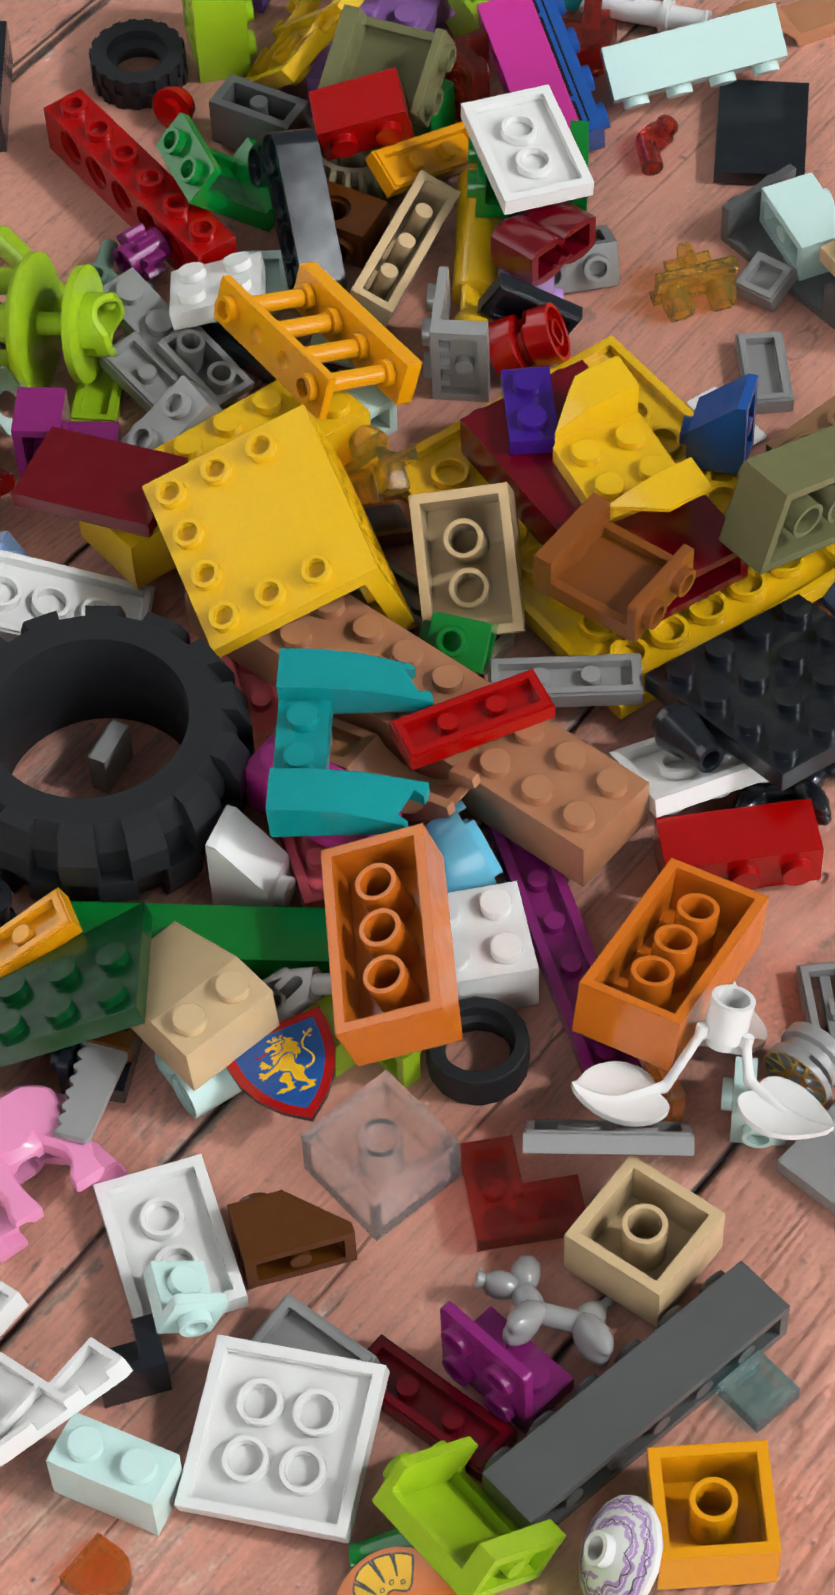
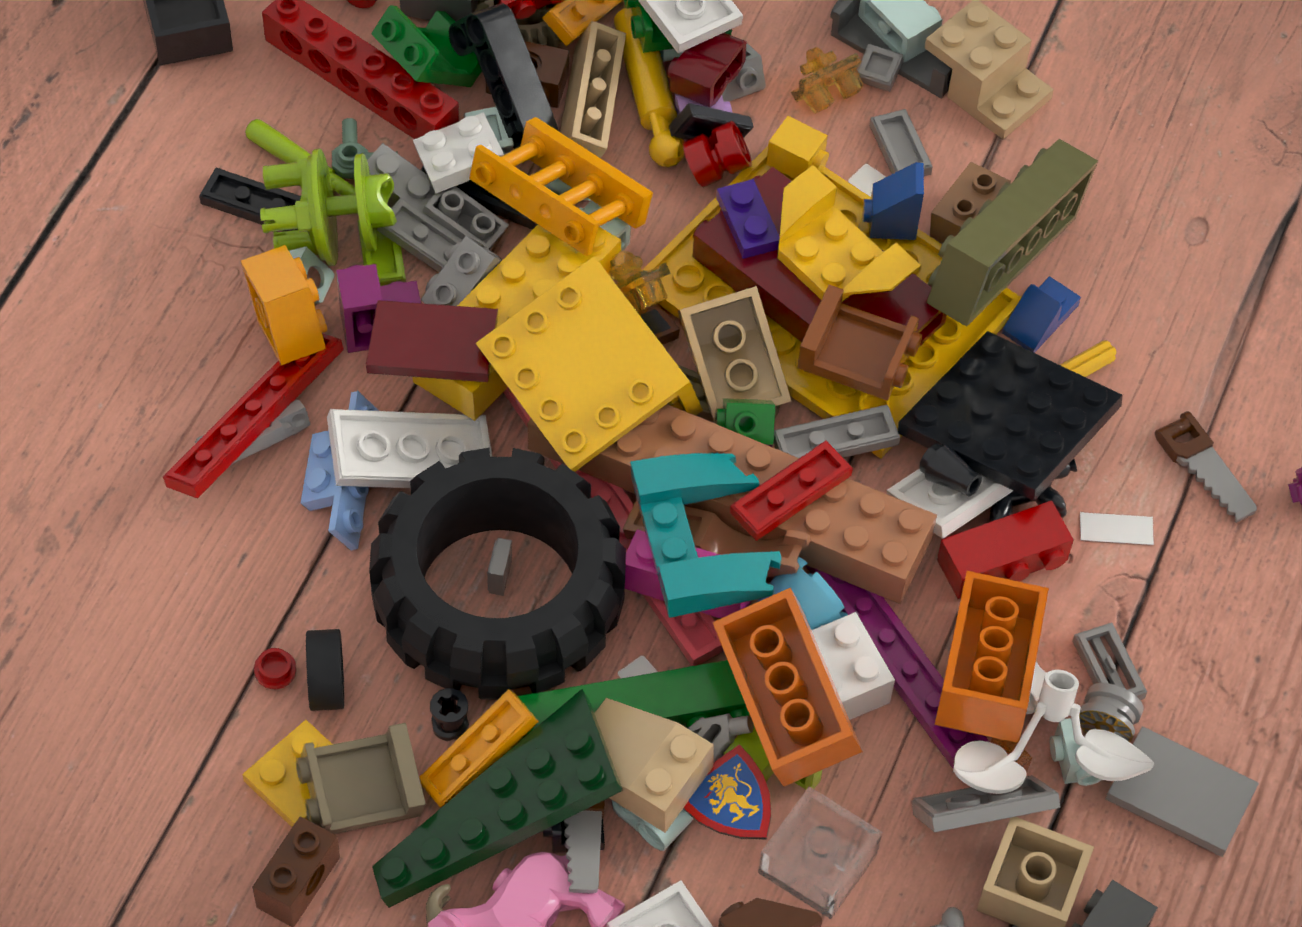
camera: 20 degrees left, 5 degrees up
(142, 251) = (380, 125): magenta gear -> none
(247, 864) = (644, 641): white slope -> none
(458, 349) = (665, 173): light grey bracket -> none
(492, 1084) = (872, 781): black tyre -> none
(510, 1211) = (923, 874): clear red plate -> none
(630, 339) = (797, 148): none -> yellow brick

